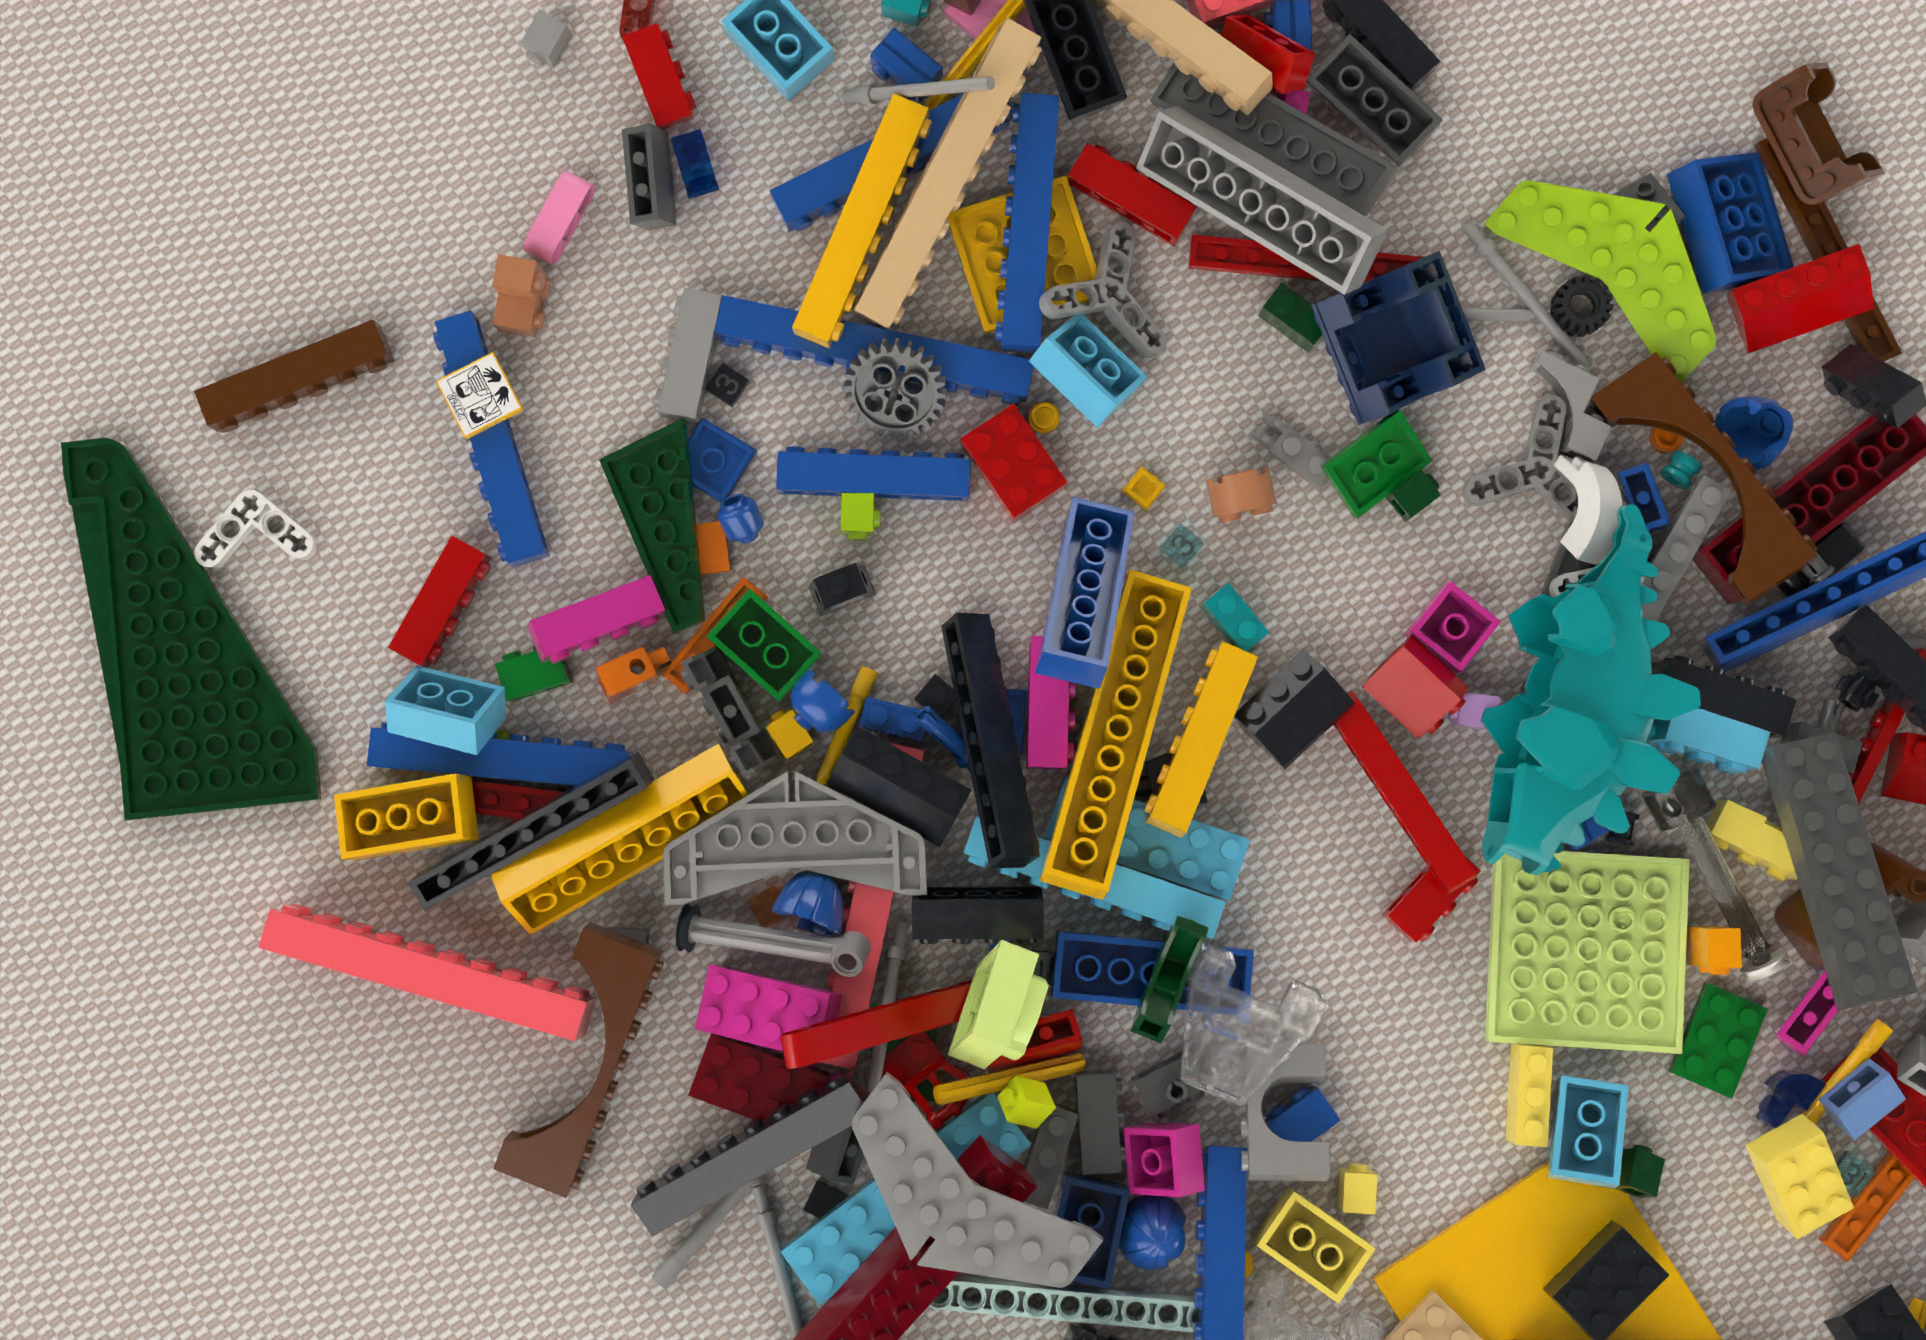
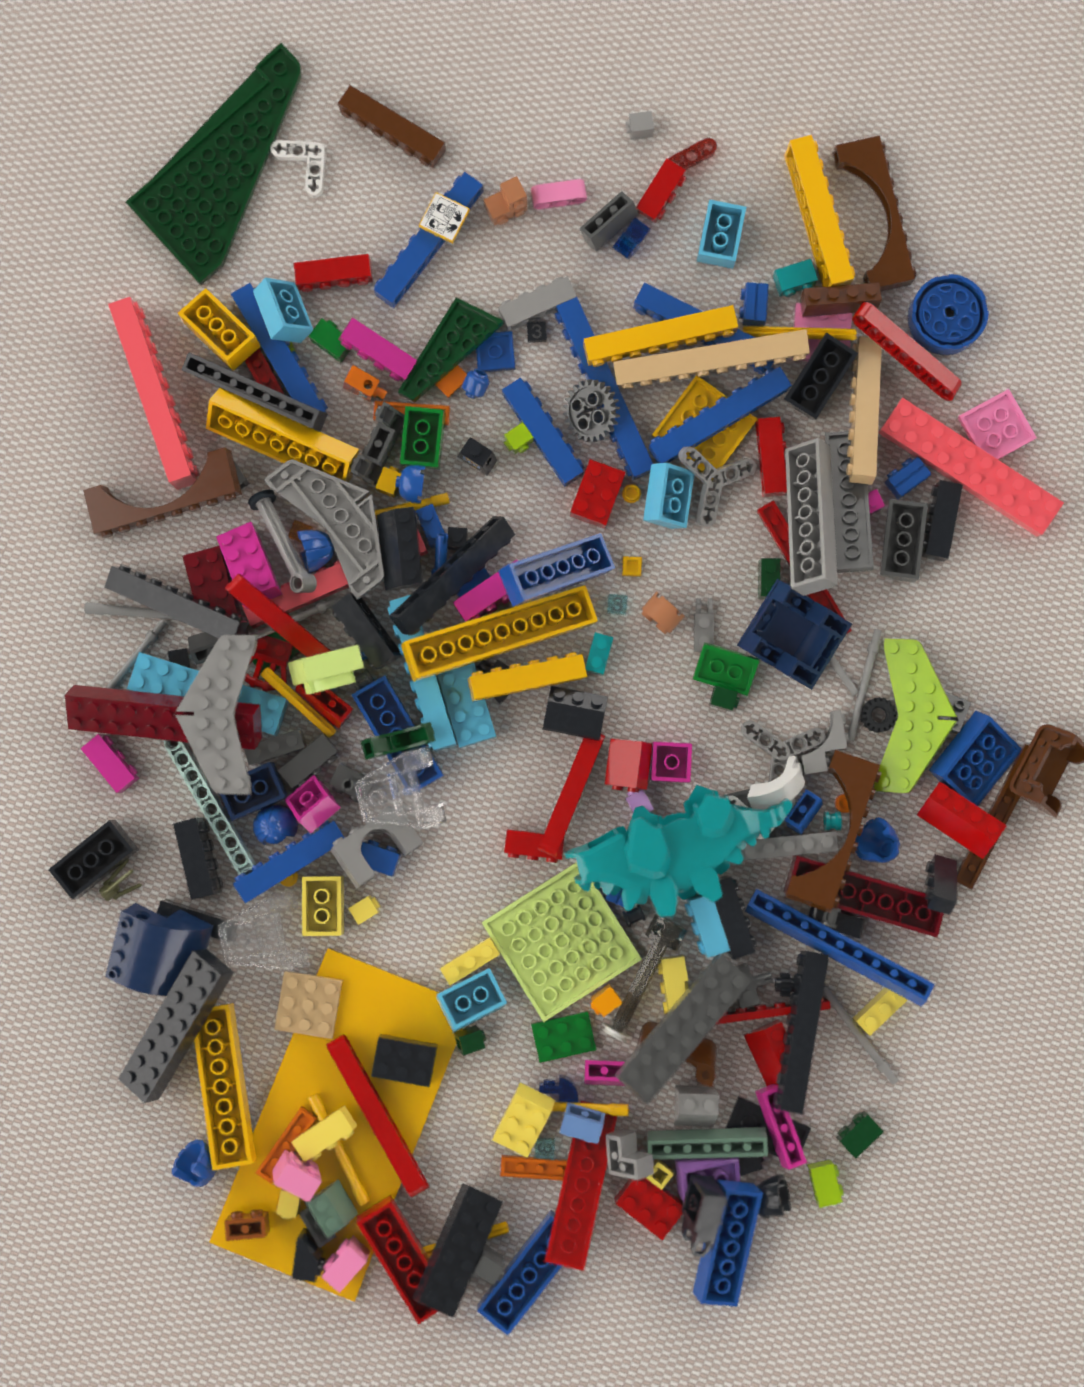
camera: 60 degrees right, 0 degrees up
(872, 94) = (727, 296): light grey bar -> none
(1026, 1102) = (292, 717): neon yellow brick -> none
(1274, 51) = (889, 470): red brick -> none

